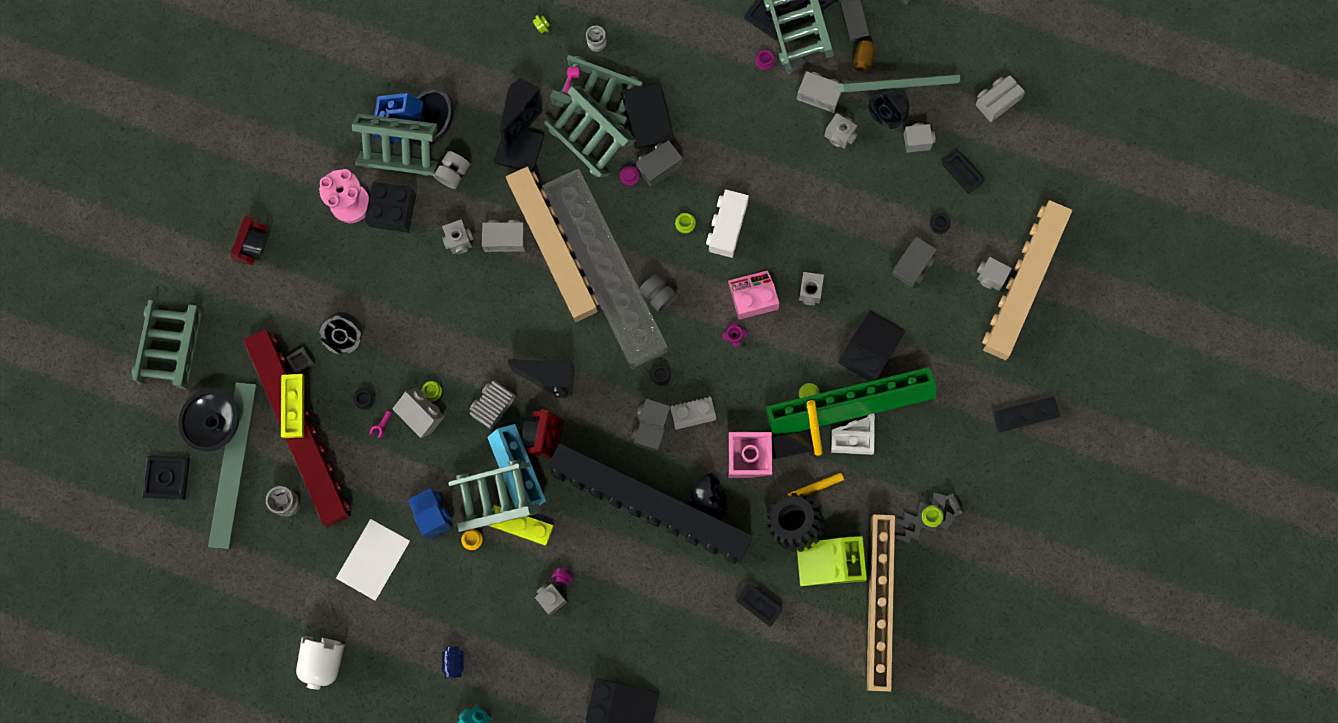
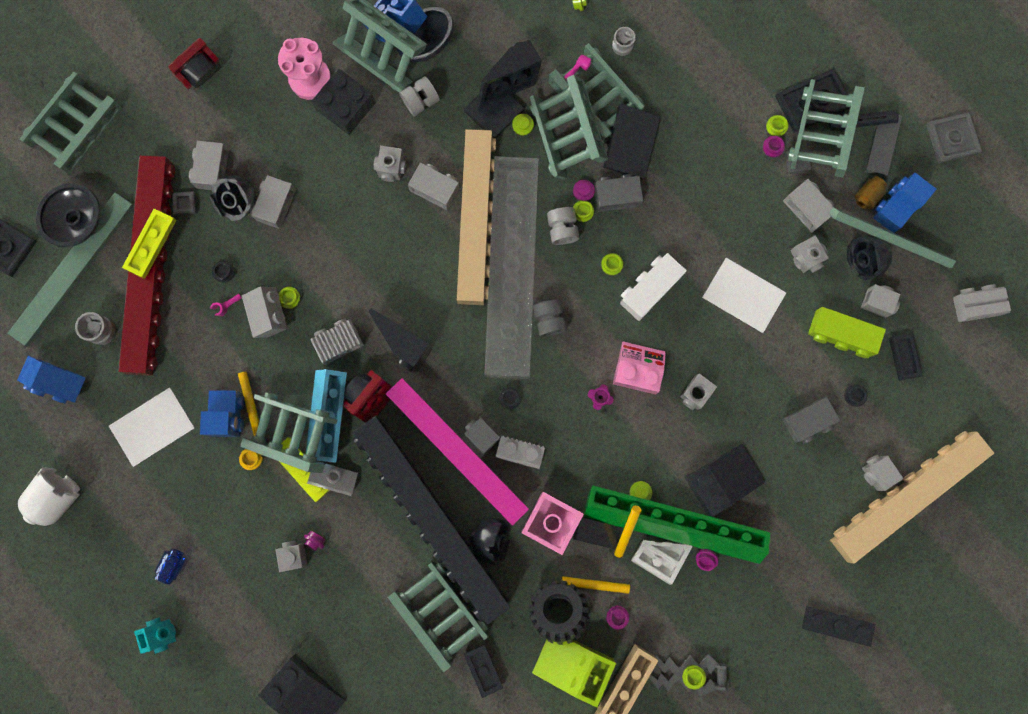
camera: 20 degrees right, 5 degrees up
(267, 561) = (44, 377): none -> blue brick
(304, 318) = (208, 164): none -> light grey brick
(375, 319) = (273, 201): none -> light grey brick
(445, 494) = (249, 401): none -> yellow bar
(549, 148) = (522, 124): none -> lime plate
(551, 517) = (334, 479): none -> light grey plate
(626, 210) = (563, 226): none -> light grey wheel
(638, 192) = (583, 210): none -> lime plate
(641, 438) = (457, 451): none -> dark pink tile
(681, 593) = (429, 637): none -> sand green fence
(759, 42) = (777, 125): none -> lime plate
(806, 191) = (744, 295): none -> white sticker
(845, 503) = (617, 617): none -> magenta plate
(891, 418) = (707, 559): none -> magenta plate
(893, 47) = (903, 201): none -> blue brick
(904, 177) = (846, 332): none -> lime brick

